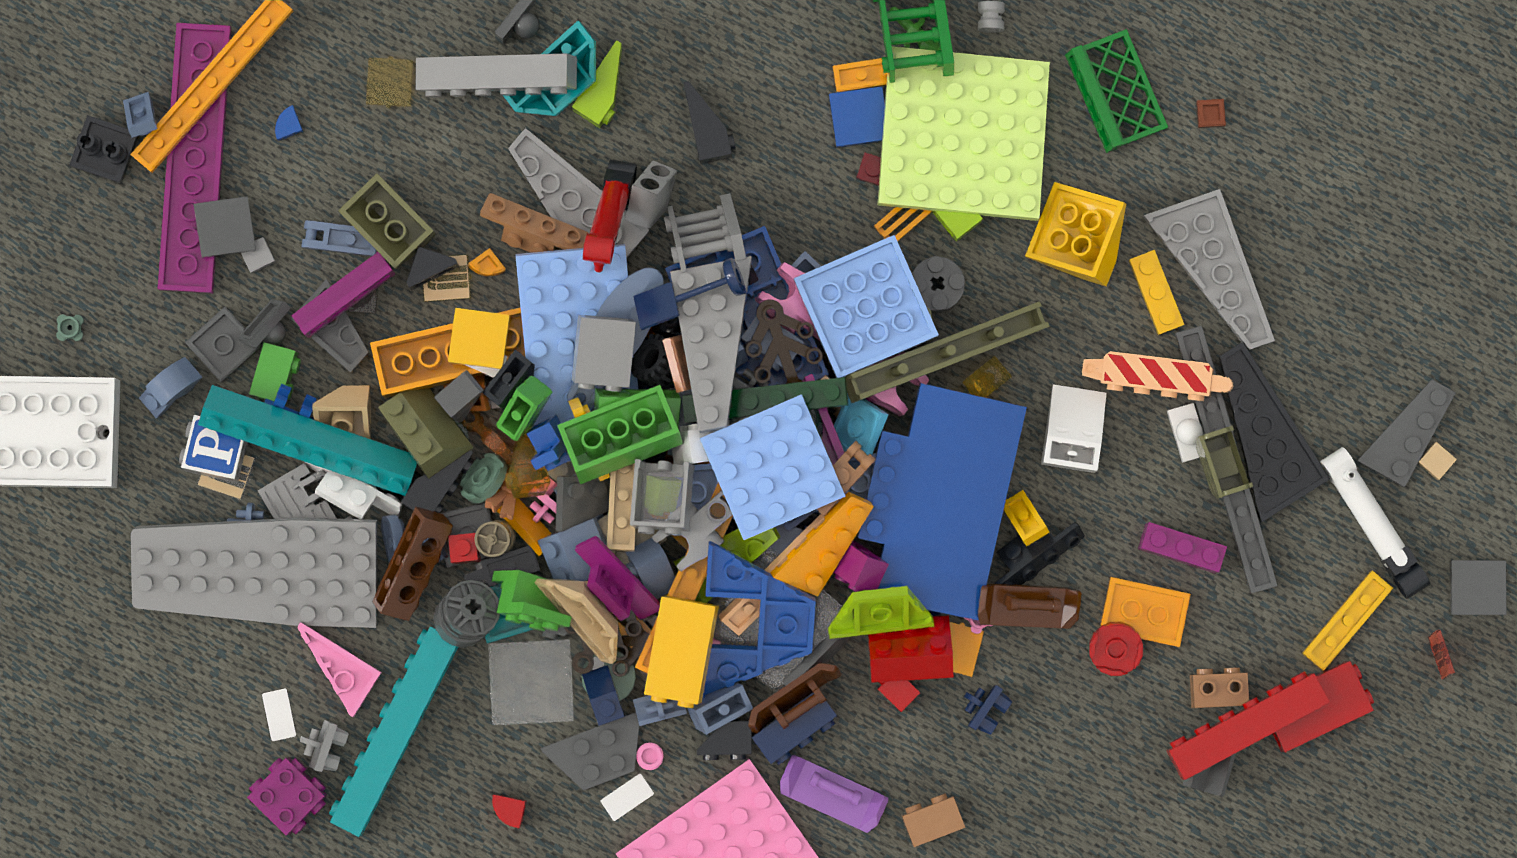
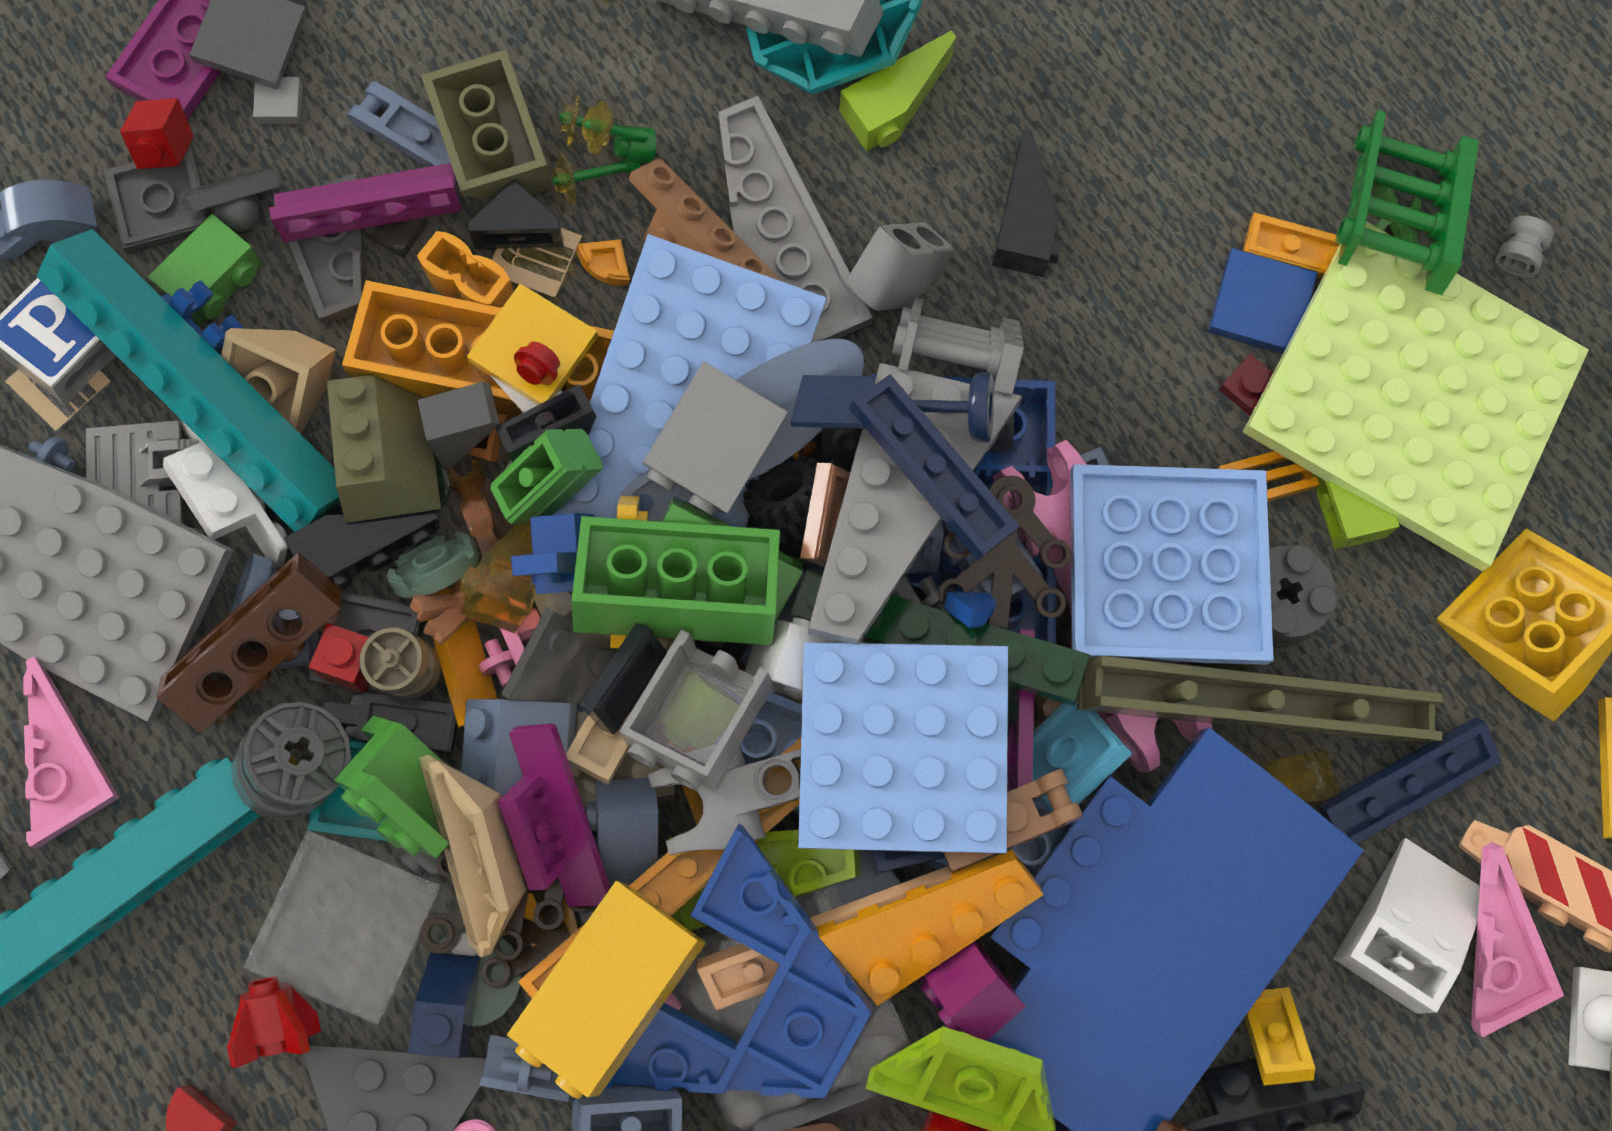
camera: 20 degrees right, 10 degrees down
(207, 309) = (157, 133): none -> red brick
(414, 312) = (461, 274): none -> light orange brick
(451, 192) = (631, 143): none -> plant
(489, 350) = (537, 363): none -> red plate
(521, 743) = (270, 1022): none -> red brick
(604, 230) = (794, 260): red piece -> none
(618, 496) = (624, 679): none -> black tile
(723, 320) = (934, 467): none -> dark blue plate
(774, 379) = (970, 607): none -> blue tile
(1043, 355) = (1412, 781): none -> dark blue plate
(1130, 426) = (1510, 959): none -> bright pink wing

